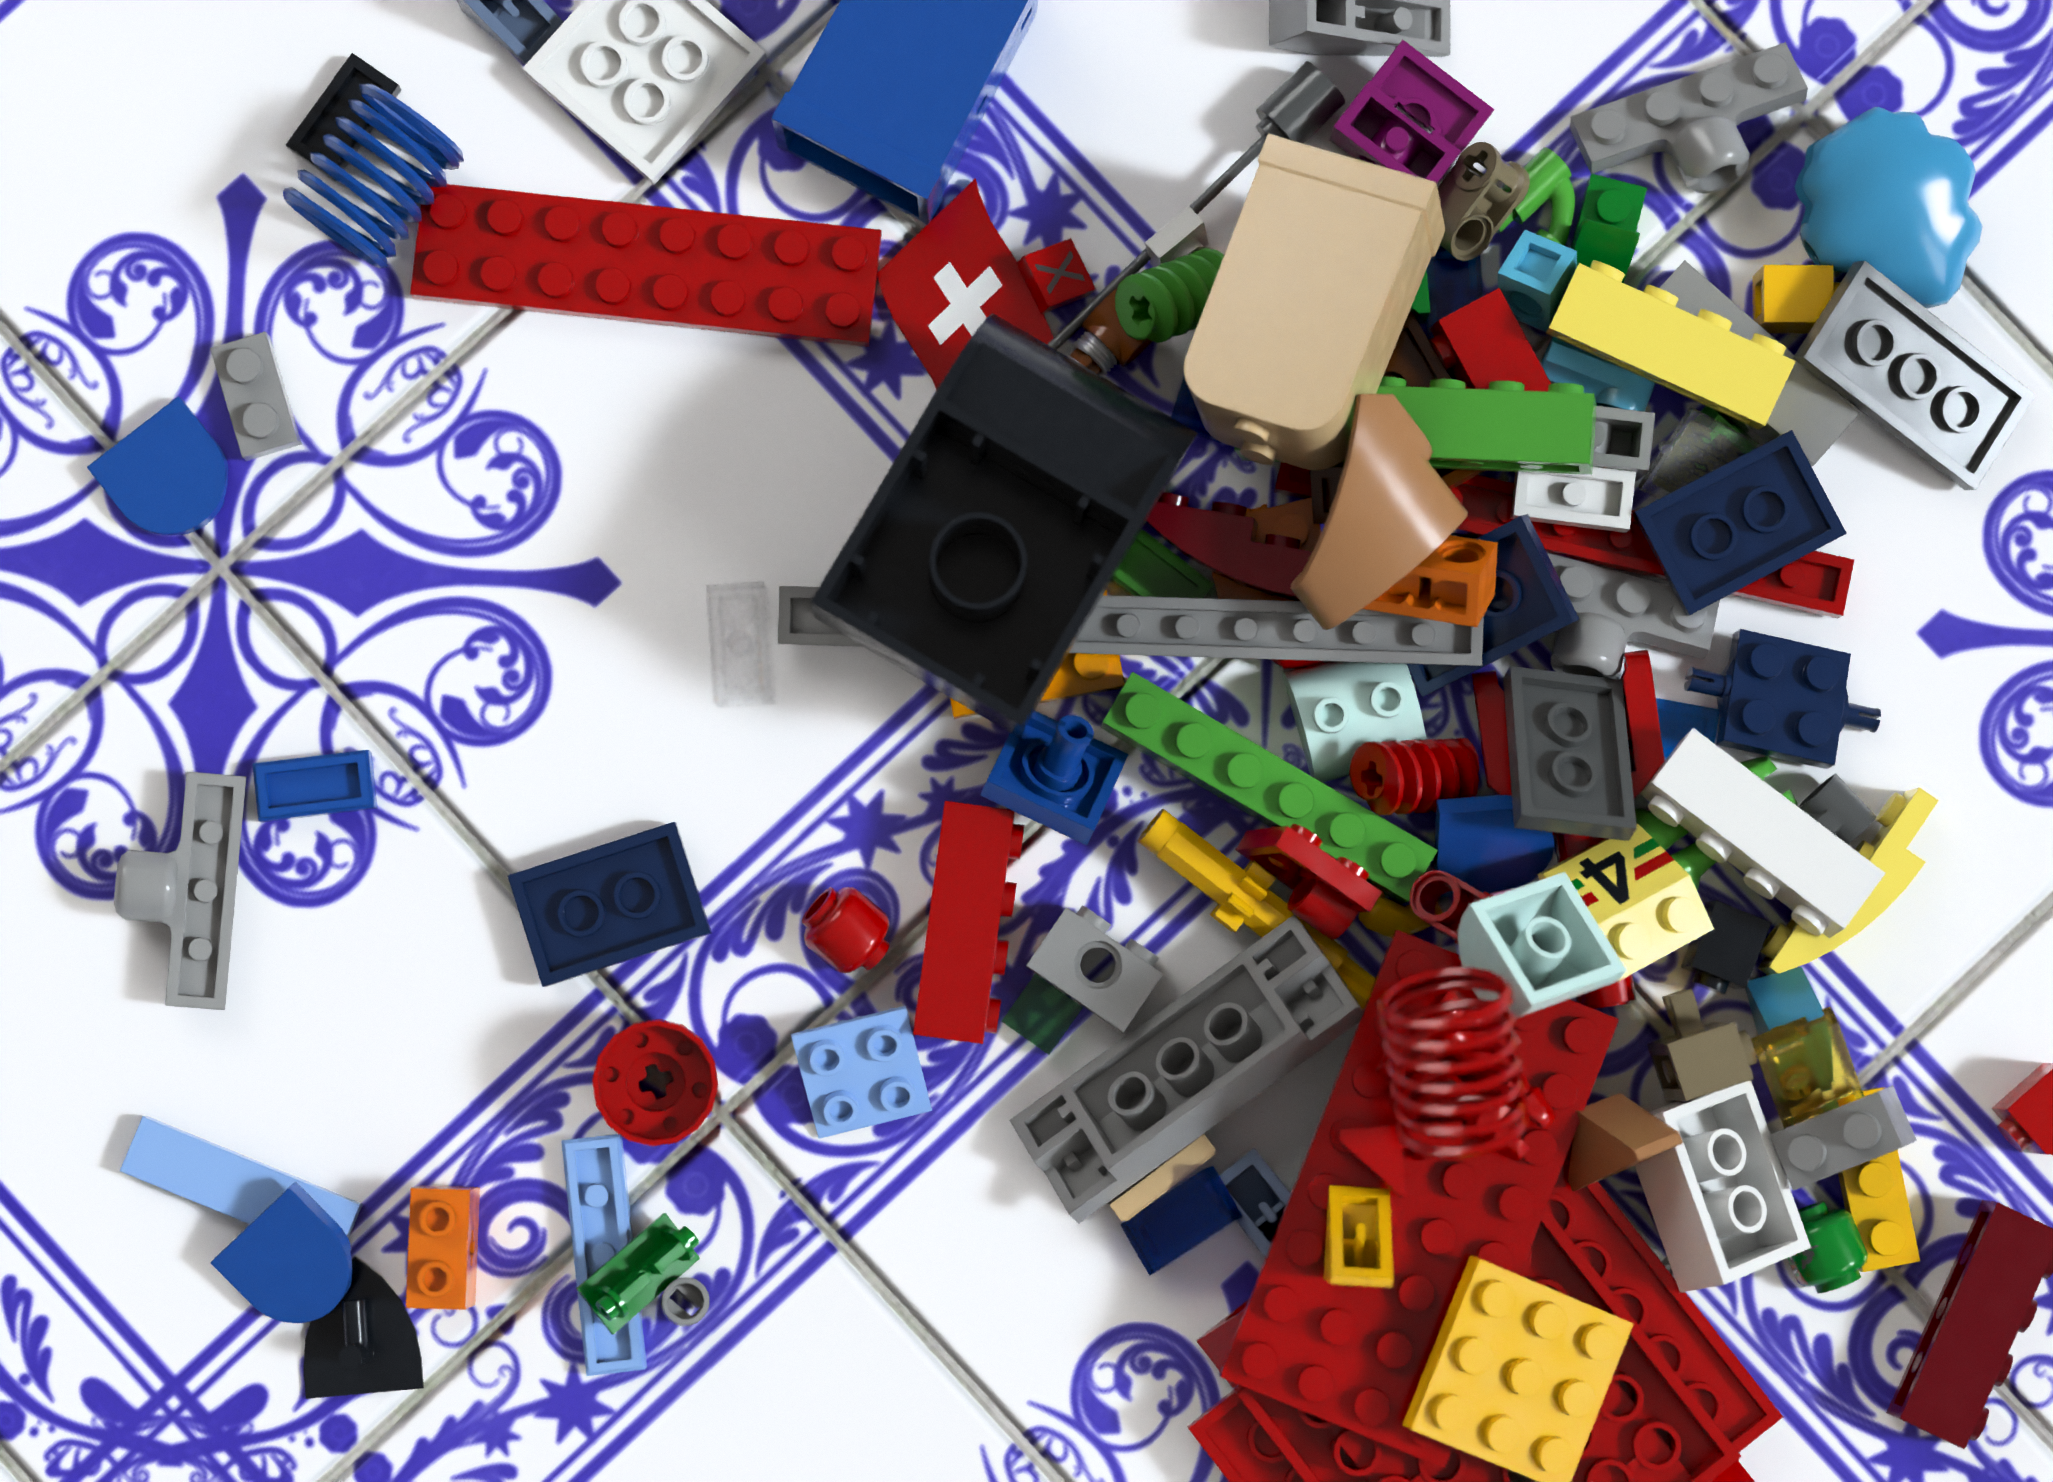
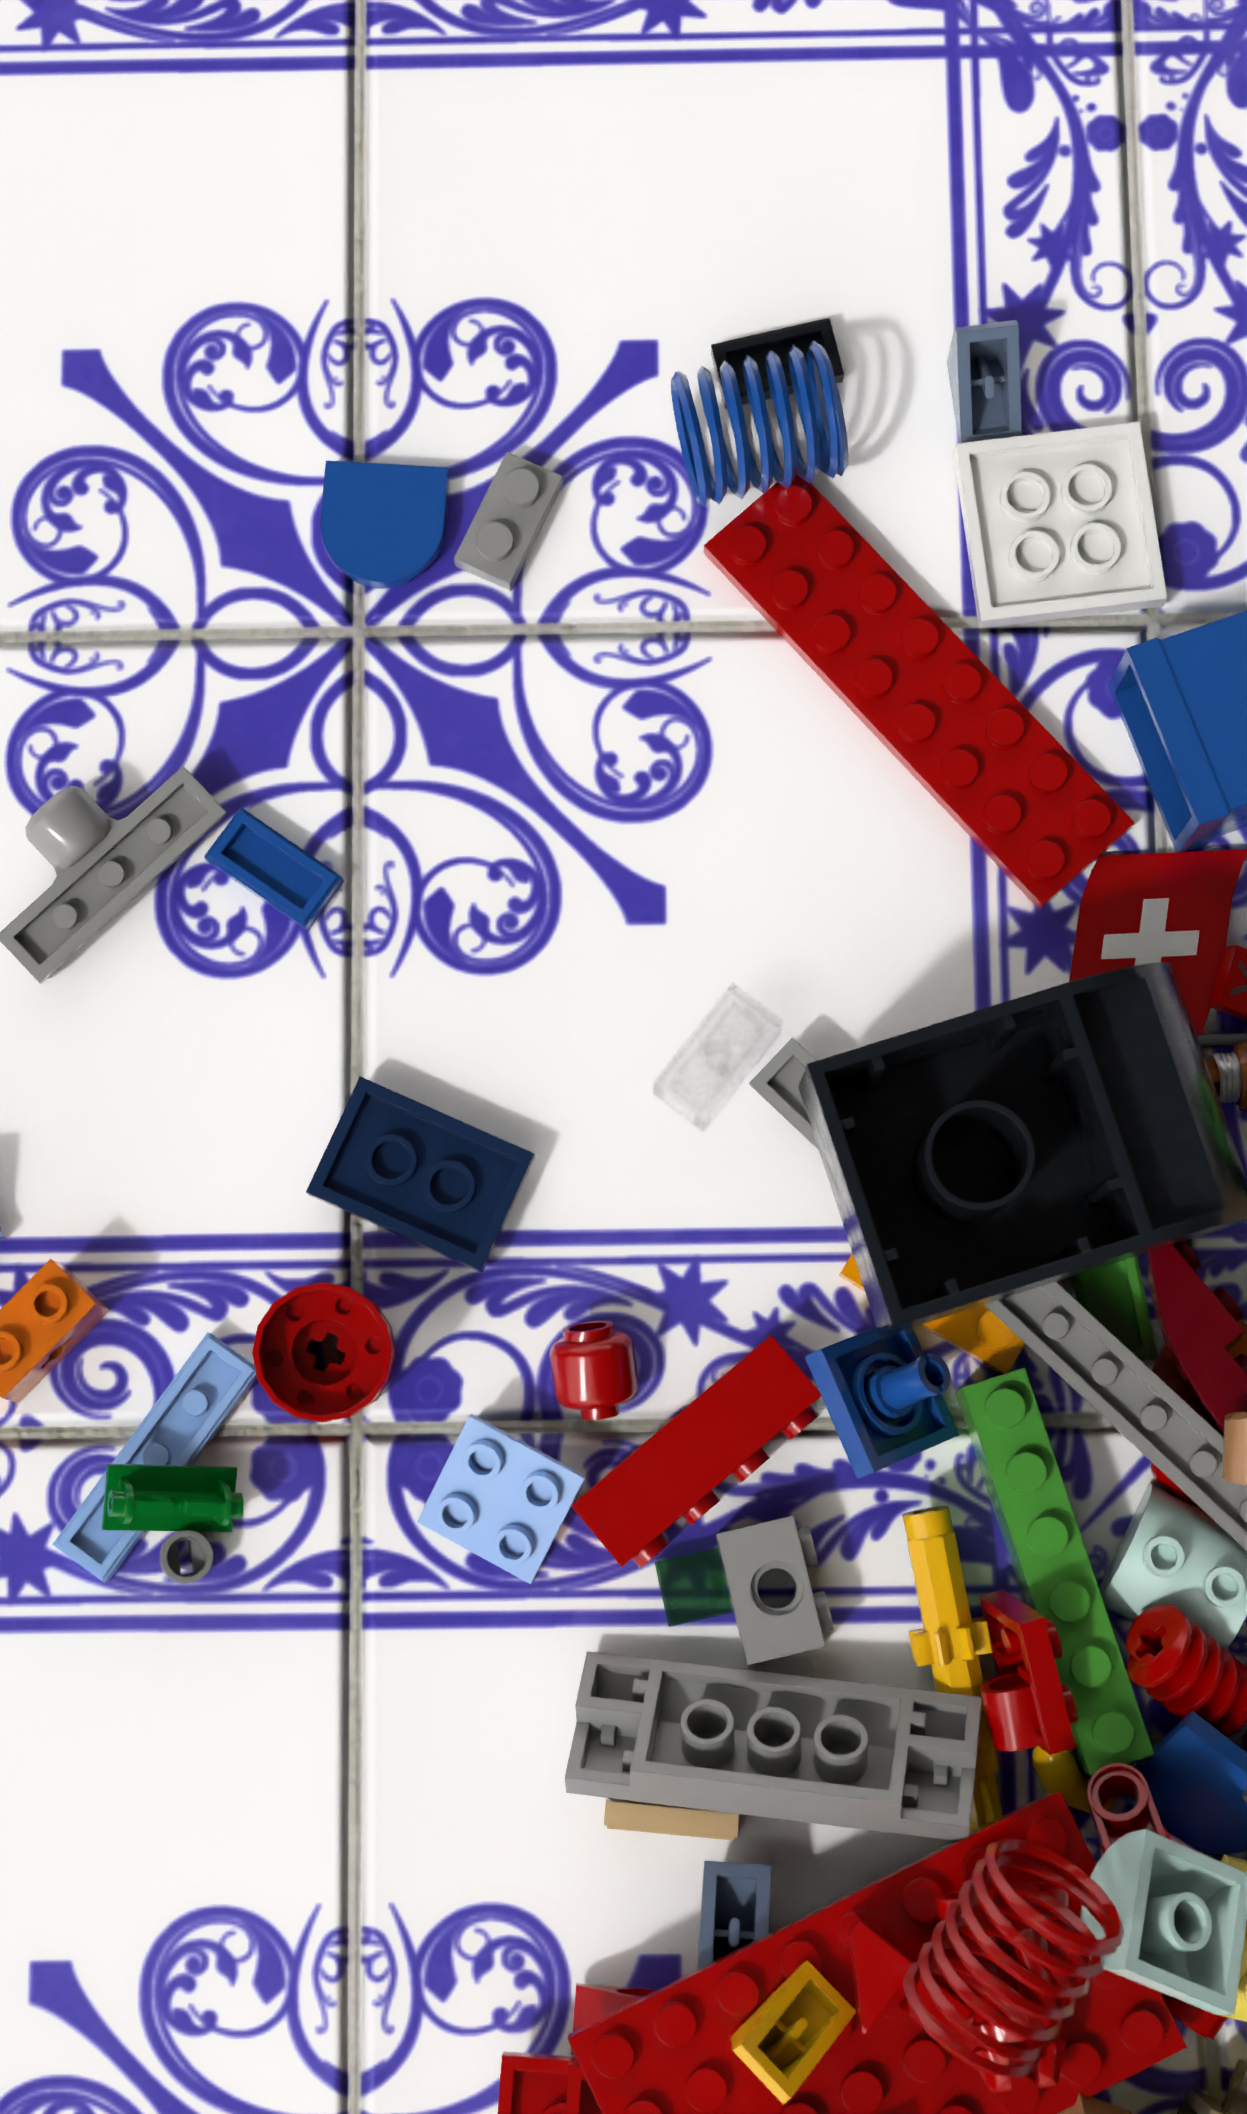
camera: 50 degrees right, 5 degrees down
(1181, 1220) = (655, 1870): clear blue tile -> none

